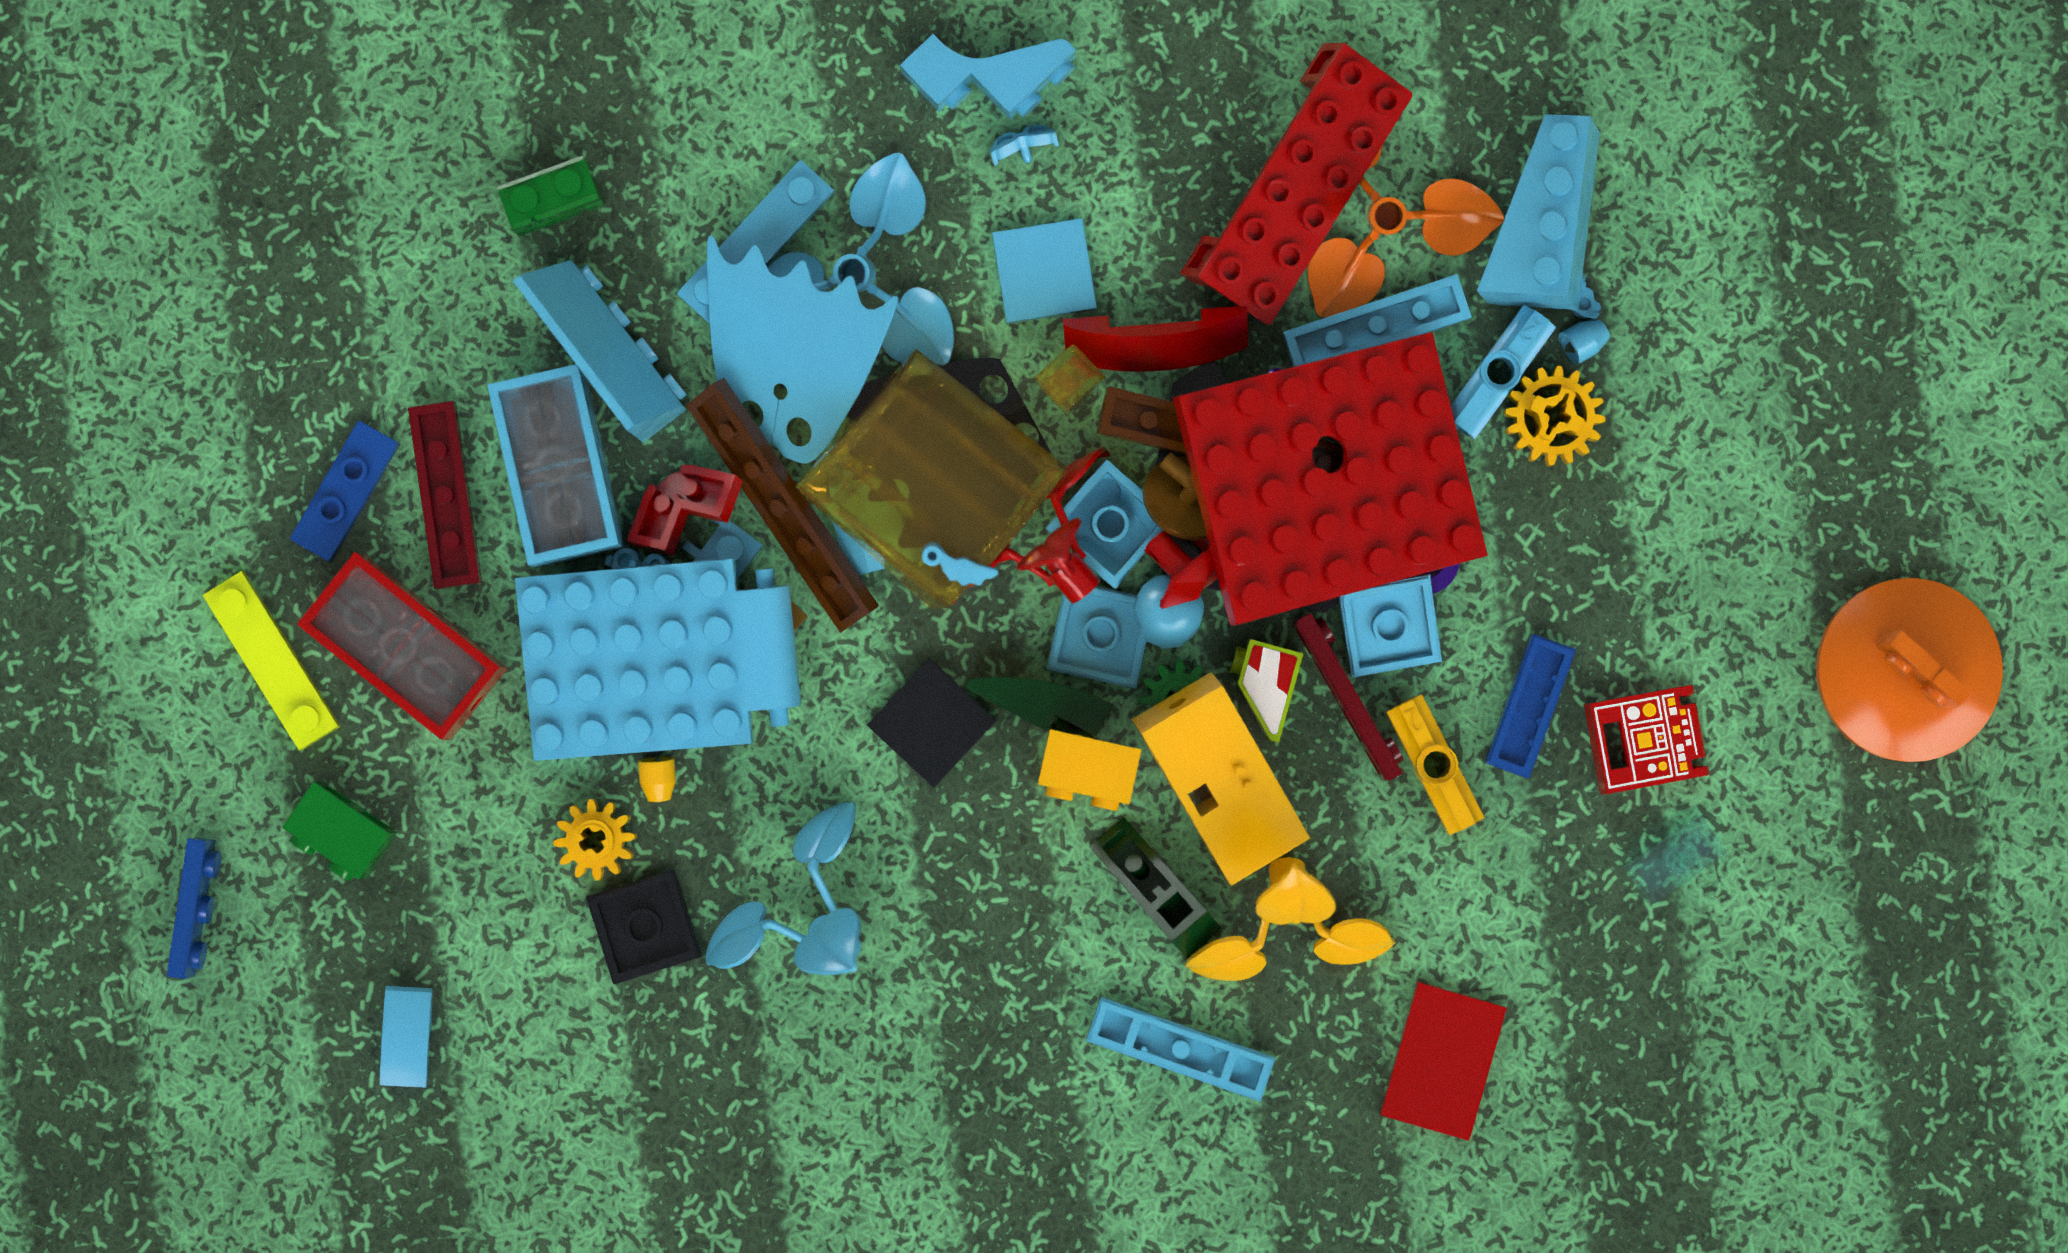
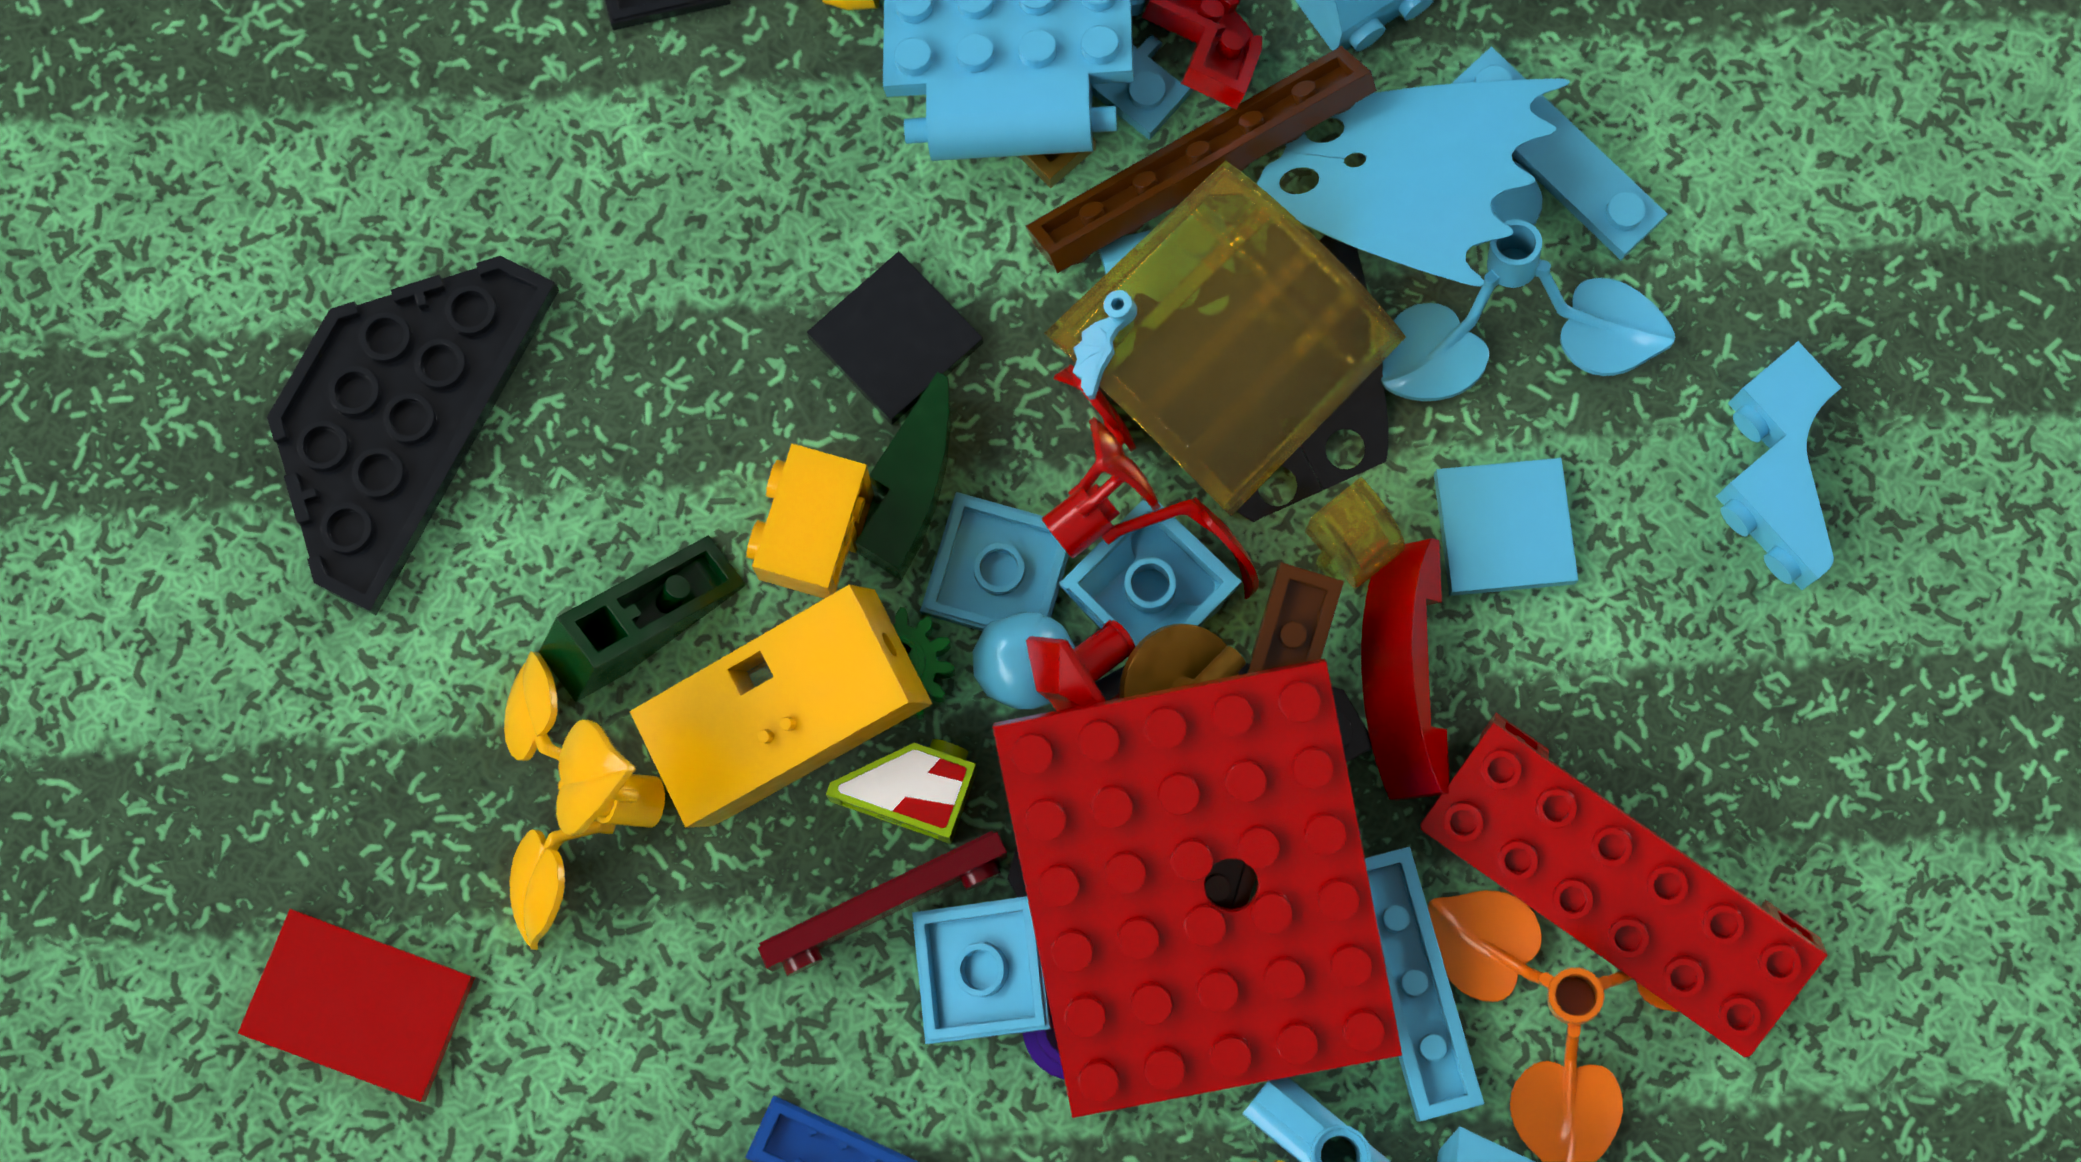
camera: 90 degrees right, 10 degrees down
(831, 938) = (591, 143): medium azure plant -> none
(1013, 1086) = (391, 412): none -> black plate
(1030, 137) = (1692, 519): medium azure piece -> none
(1180, 1048) = (416, 637): medium azure plate -> none
(1448, 792) = (736, 1035): yellow piece -> none

